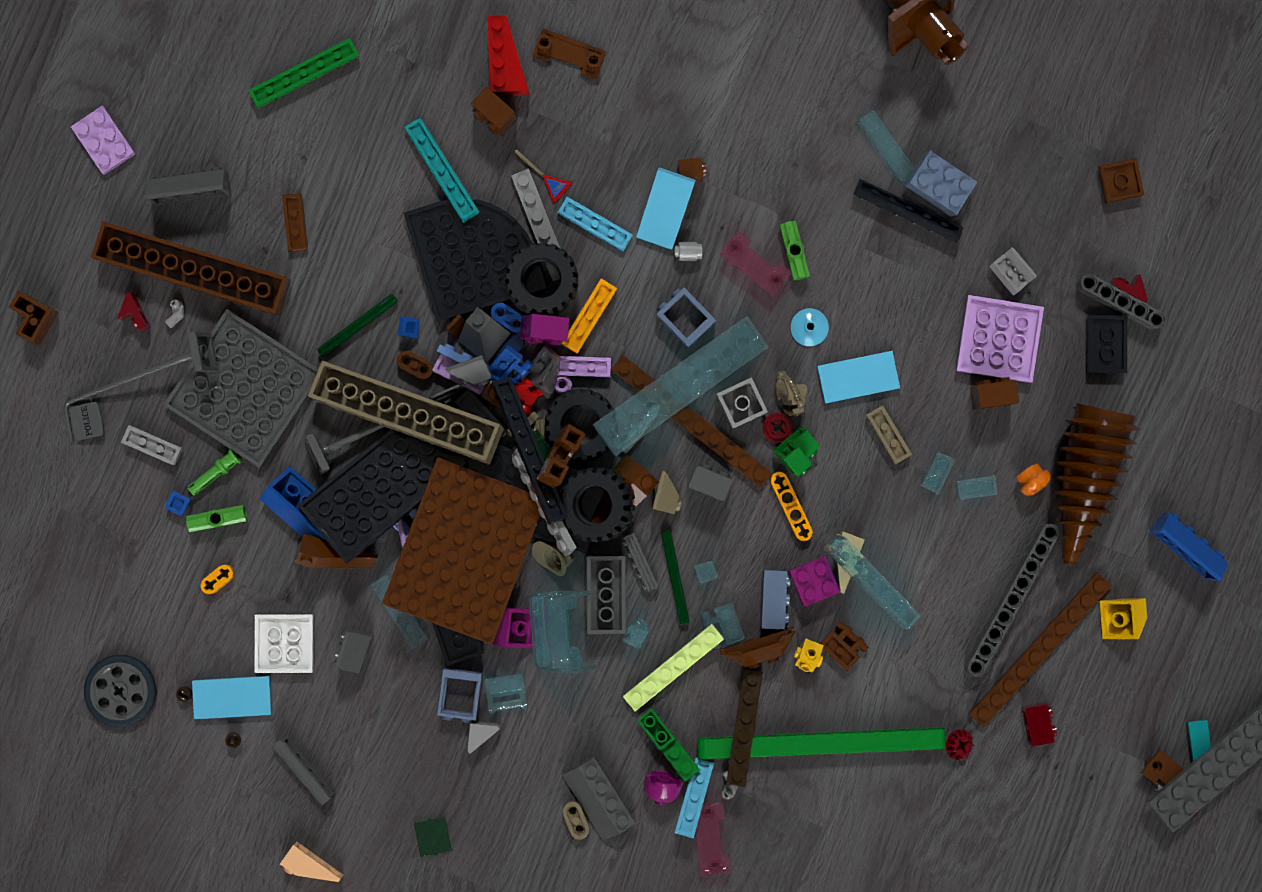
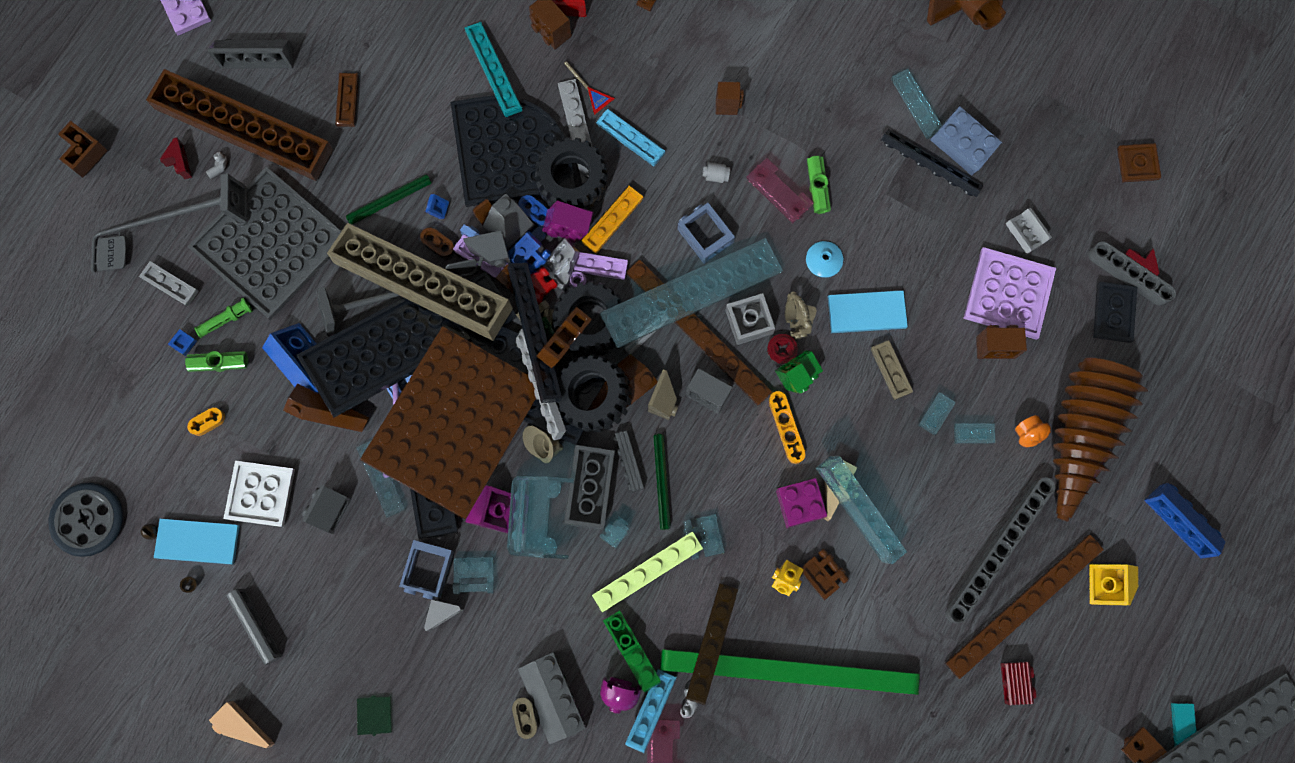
camera: 10 degrees right, 10 degrees down
(665, 208) = (699, 127): medium azure tile -> none
(706, 571) = (693, 480): clear light blue plate -> none
(760, 649) = (737, 565): reddish brown wedge -> none
(774, 599) = (759, 516): sand blue brick -> none
(953, 742) = (926, 690): dark red gear -> none

